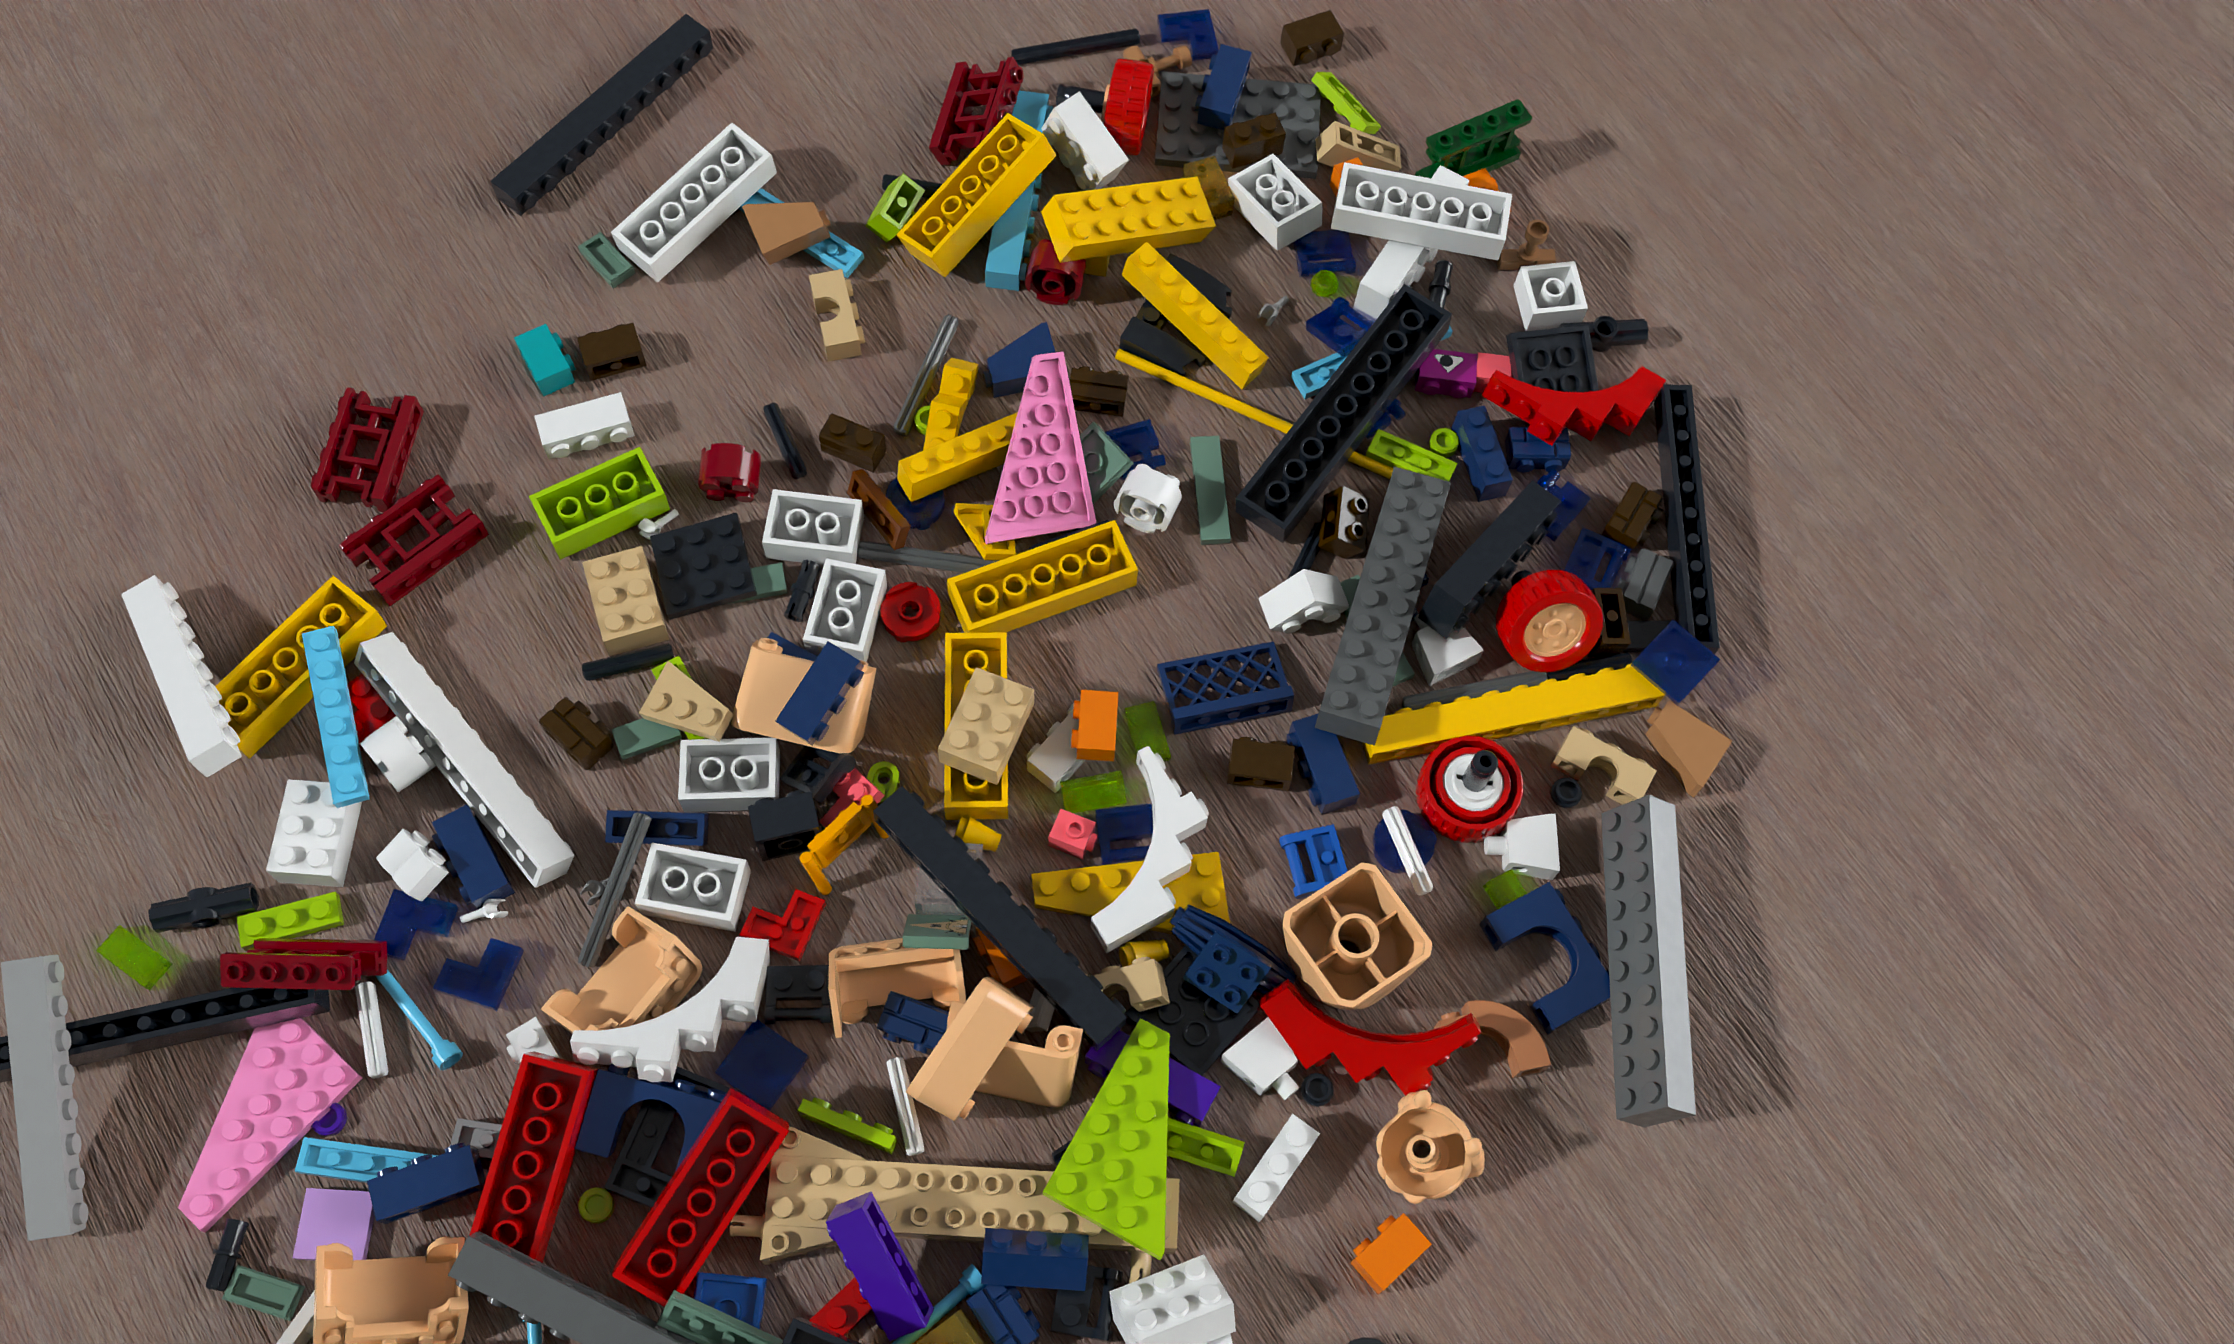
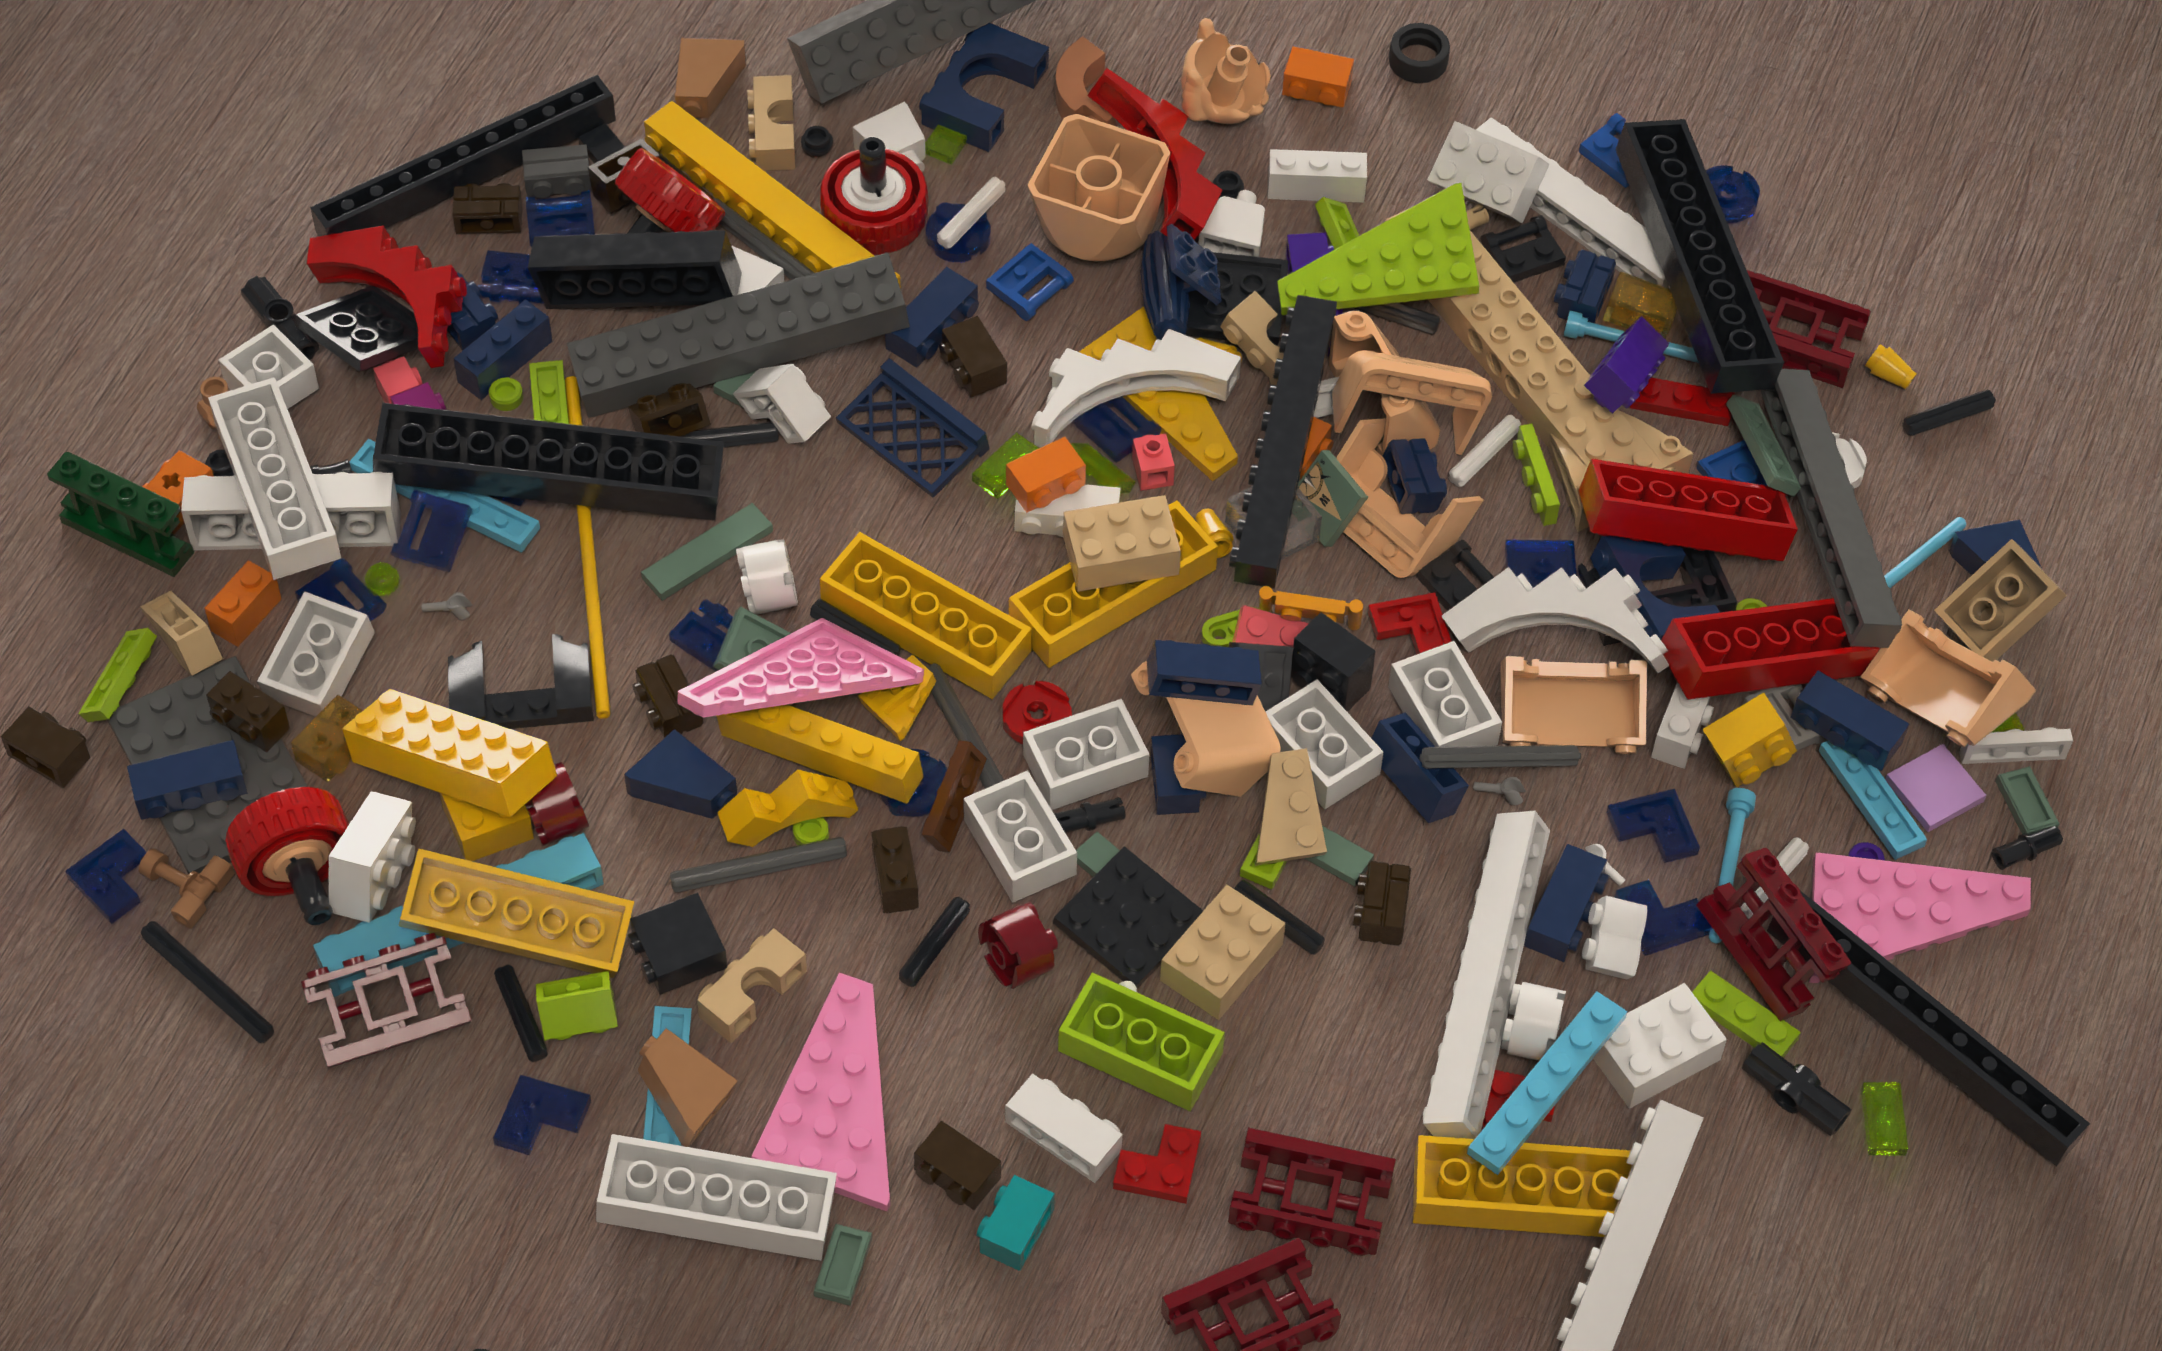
camera: 120 degrees left, 10 degrees down
(44, 1097) = (2048, 1044): light grey brick -> none
(470, 1083) = (1750, 740): none -> yellow brick
(507, 470) = (1161, 1176): none -> red plate
(718, 314) = (834, 1100): none -> bright pink wing
(850, 163) = (539, 1103): none -> clear blue plate
(896, 287) = (677, 944): none -> black brick
(1035, 1259) = (1530, 274): dark blue brick -> none
(1194, 315) = (521, 644): yellow brick -> none
(1675, 662) = (638, 98): clear blue plate -> none

